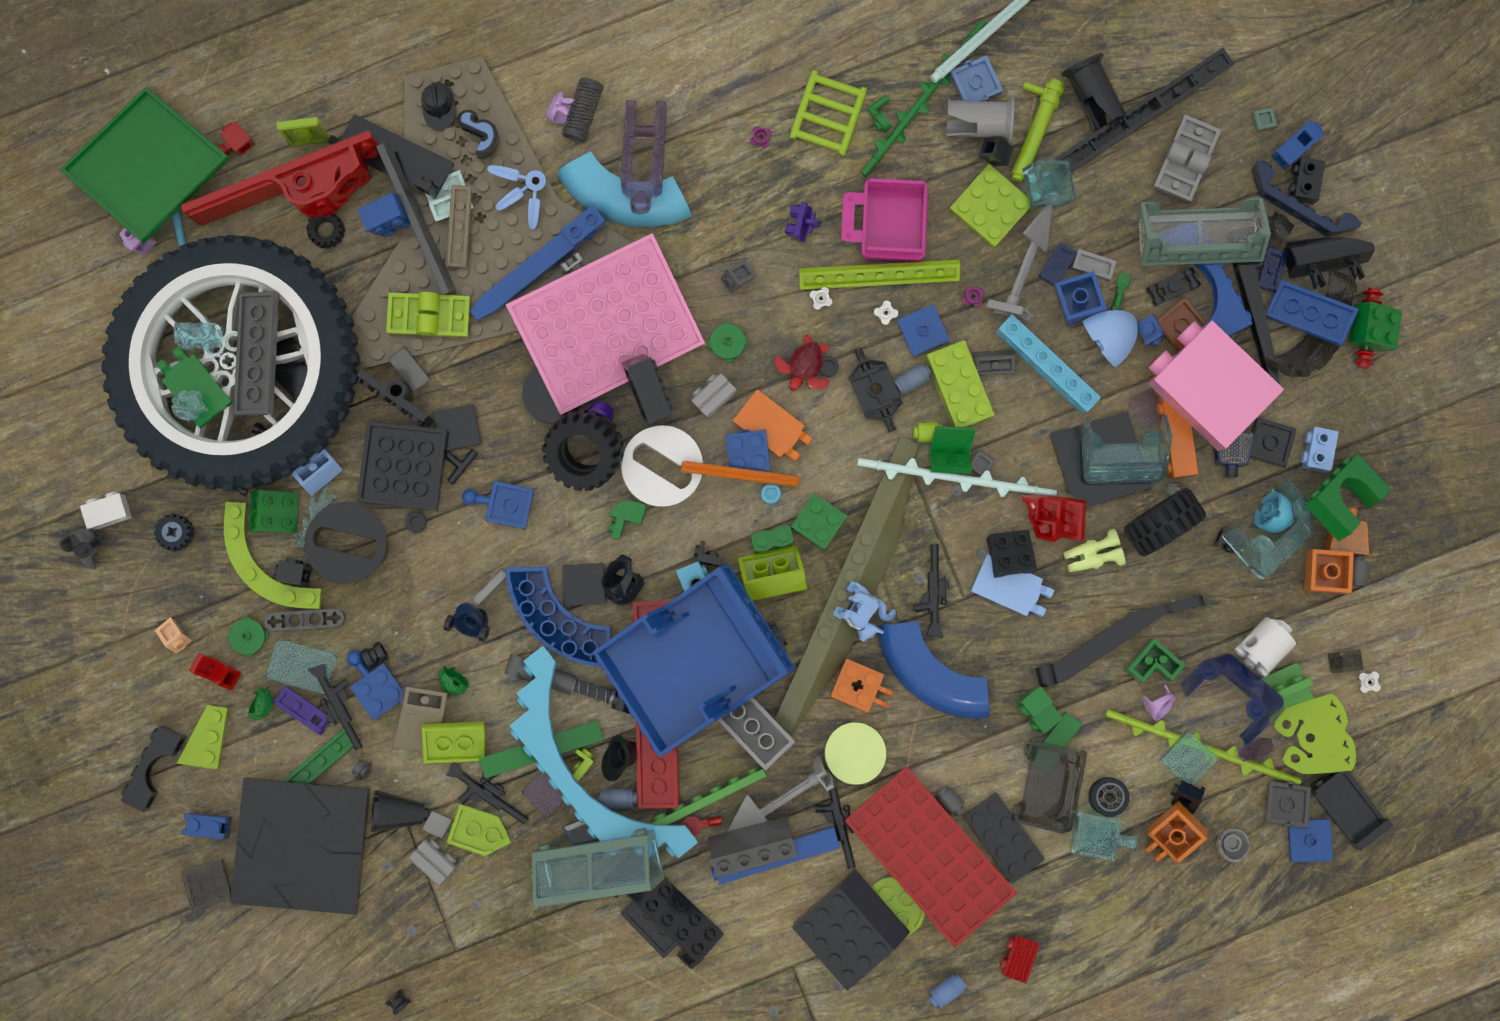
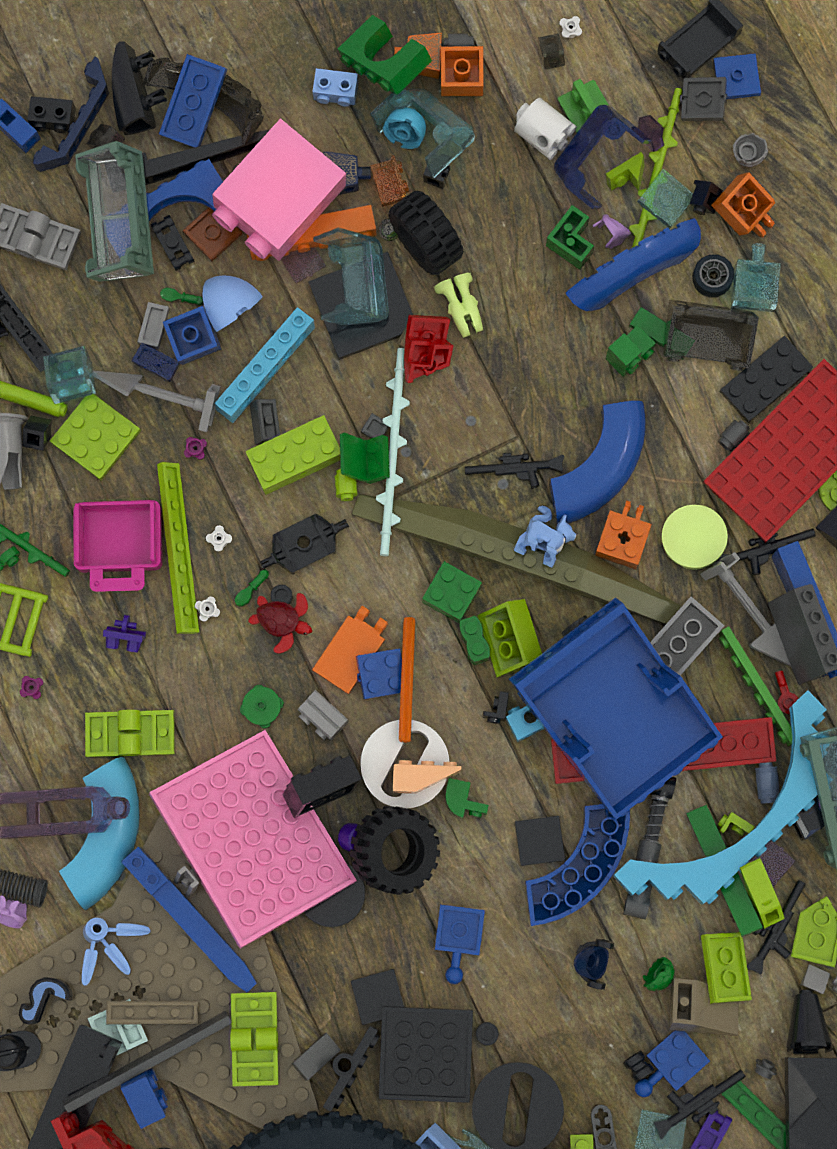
camera: 85 degrees left, 5 degrees down
(461, 465) = (419, 989): black piece -> none
(490, 588) = (553, 942): light grey tile -> none
(516, 780) = (761, 893): none -> lime slope
(618, 756) = (724, 787): black piece -> none
(621, 589) = (541, 795): black helmet -> none
(646, 472) = (415, 778): none -> light nougat slope
(711, 222) = (129, 733): none -> lime plate
(737, 276) = (188, 700): dark grey bracket -> none
(770, 493) = (424, 646): medium azure tile -> none
(831, 333) = (245, 595): none -> green piece
(913, 378) = (289, 504): sand blue head -> none
(923, 330) = (235, 498): blue plate -> none
(1011, 553) = (469, 389): black brick -> none
(1011, 591) = (503, 389): light blue tile -> none
(1108, 640) = (550, 285): black piece -> none
(1121, 722) = (635, 265): none -> blue brick
(1151, 330) = (221, 262): blue bracket -> none
(1219, 726) = (629, 170): none -> lime slope
(1221, 493) = (389, 181): none -> clear orange bracket
(1272, 270) = (151, 144): clear blue plate -> none
(1272, 442) = (331, 133): black tile -> none
(1329, 734) = (628, 62): lime piece -> none
(1374, 328) = (204, 38): green brick -> none

